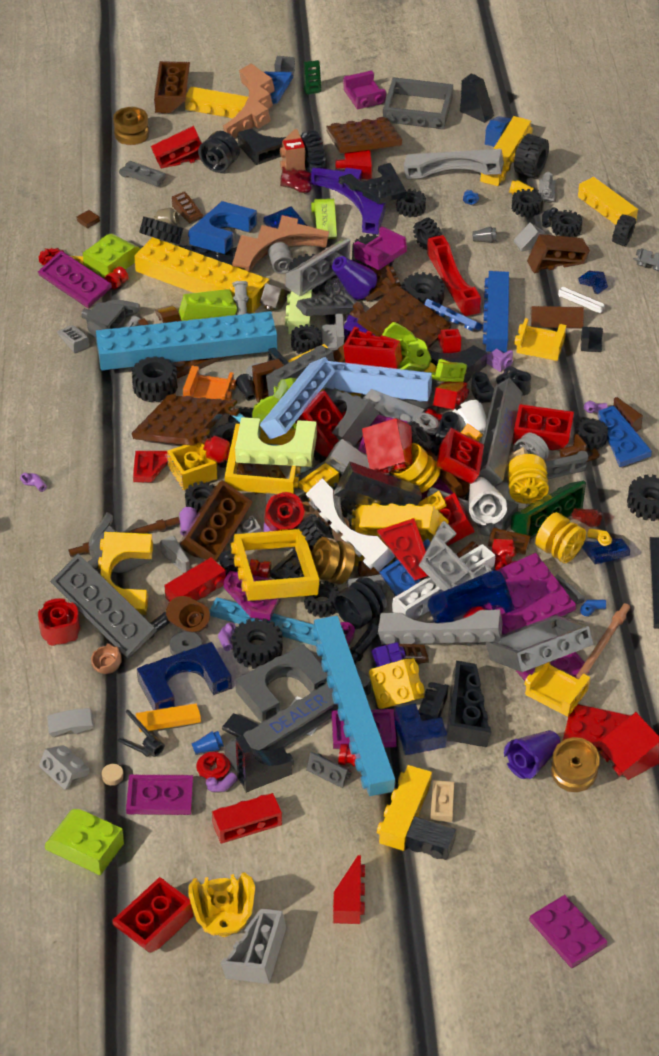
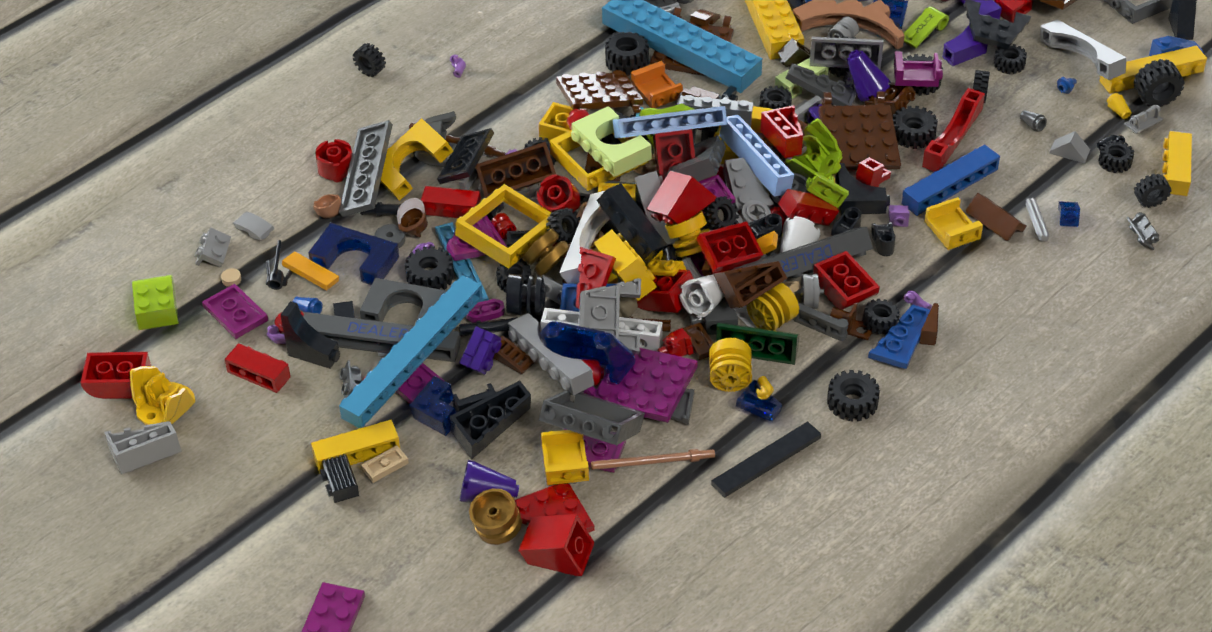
camera: 50 degrees right, 0 degrees up
(148, 465) = (536, 107): red wing -> none
(170, 544) = (465, 156): none -> black tile
(207, 305) = (731, 26): lime wedge -> none
(240, 296) = (760, 37): light grey pin -> none
(347, 895) = (241, 465): red slope -> none
(396, 683) = (468, 365): yellow bracket -> none
(455, 317) = (909, 155): wing -> none
(510, 469) = (750, 282): none -> reddish brown wedge
(526, 202) = (1101, 116): black tyre -> none
(557, 251) = (1069, 169): reddish brown wedge -> none
(589, 517) = (784, 372): clear red cone -> none
(591, 339) = (994, 252): black panel -> none
(591, 605) = (687, 431): blue arm -> none

